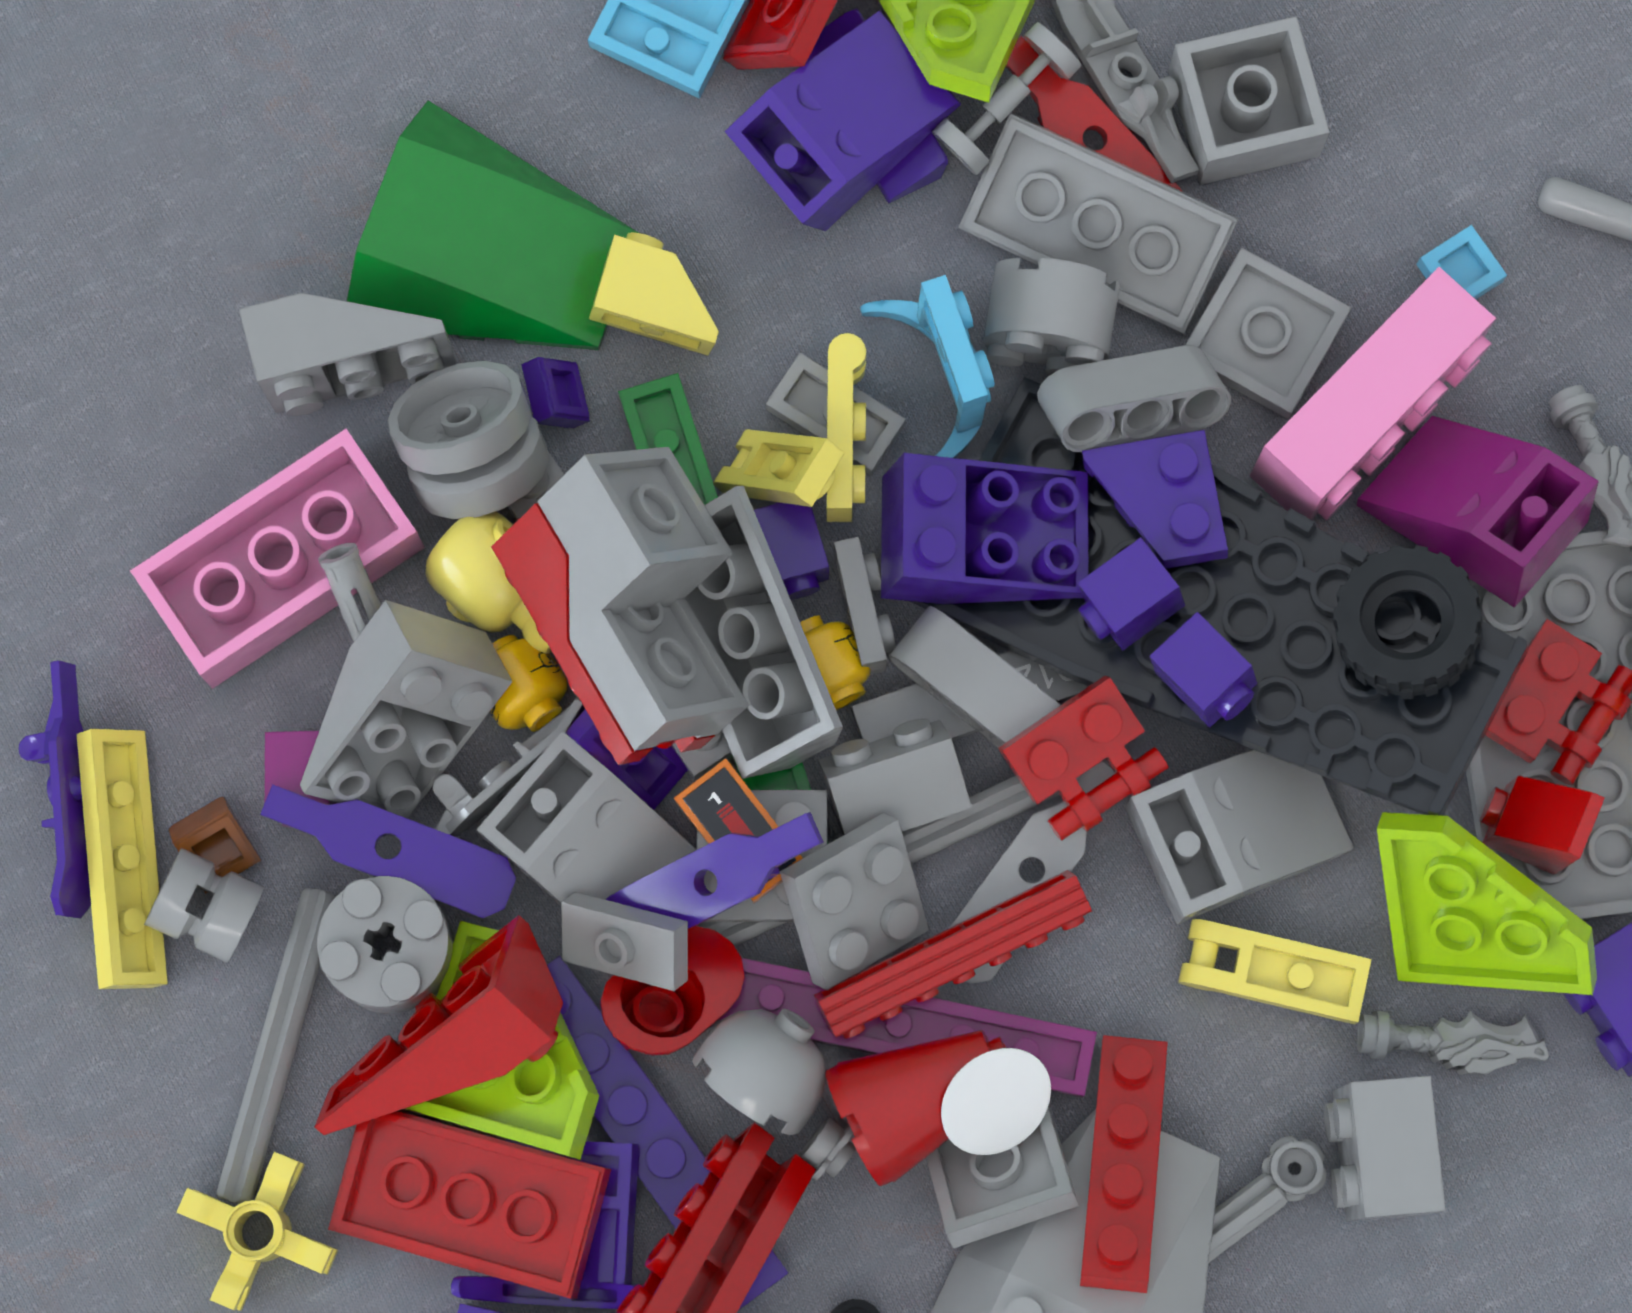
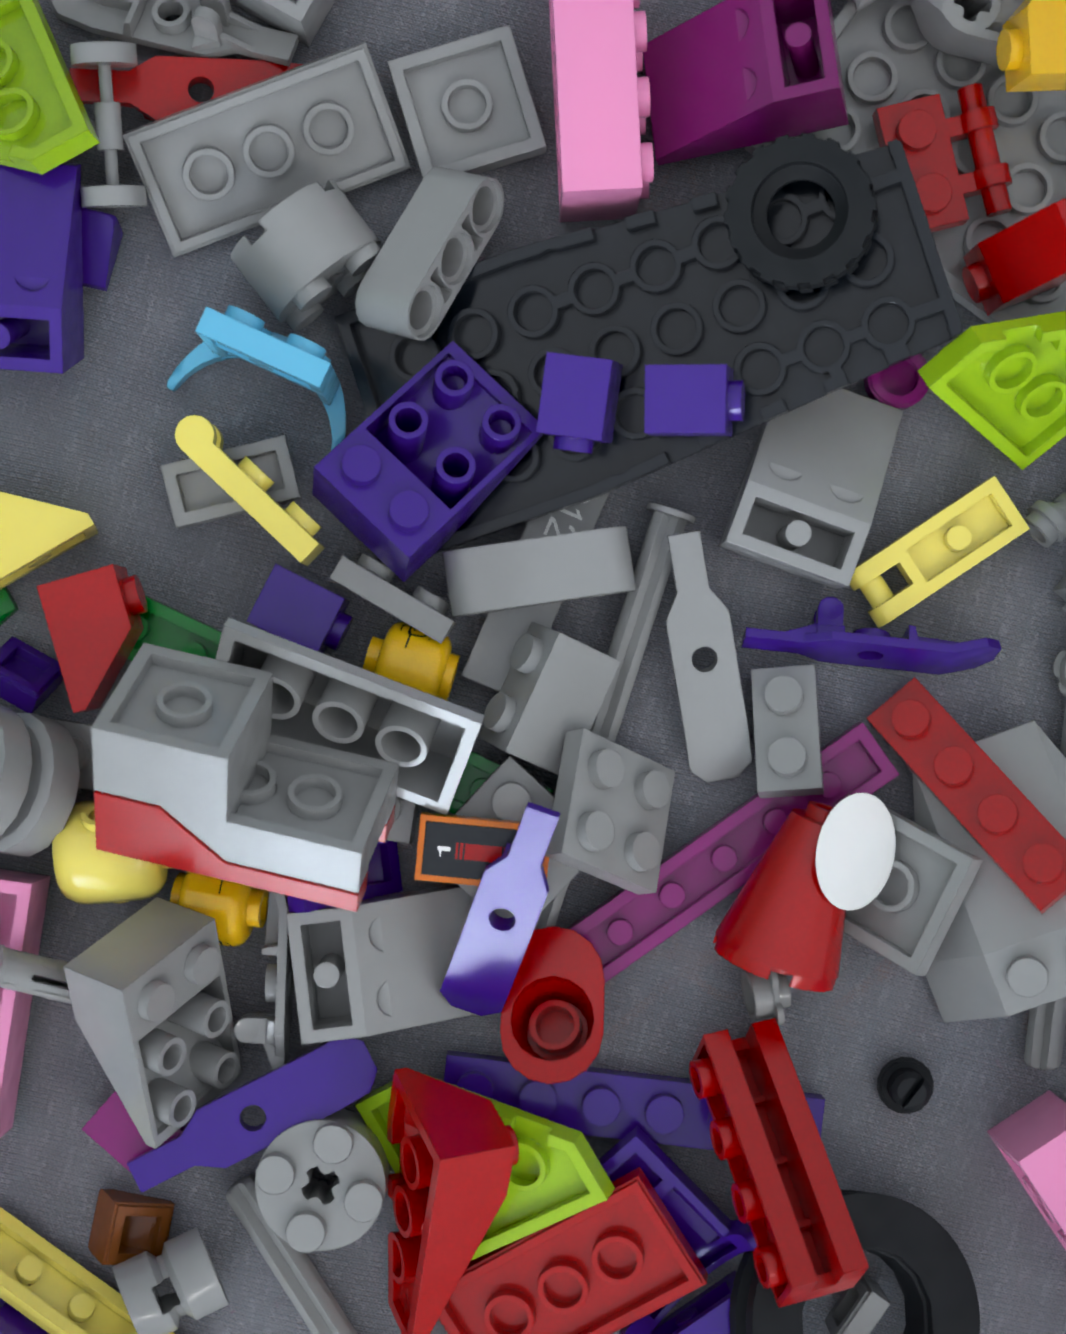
camera: 50 degrees left, 10 degrees up
(625, 941) = (486, 1011): light grey plate -> none
(642, 406) = (93, 629): none -> red slope
(765, 1066) = (671, 993): light grey cylinder -> none
(781, 467) = (238, 566): light yellow plate -> none
(953, 955) = (715, 776): red piece -> none
(1036, 984) = (787, 731): none -> light grey plate
(1071, 742) = (646, 547): red plate -> none
(1162, 995) = (872, 647): none -> dark purple piece
(1166, 494) = (527, 300): dark purple wing -> none
(1362, 821) = (898, 385): none -> magenta tile

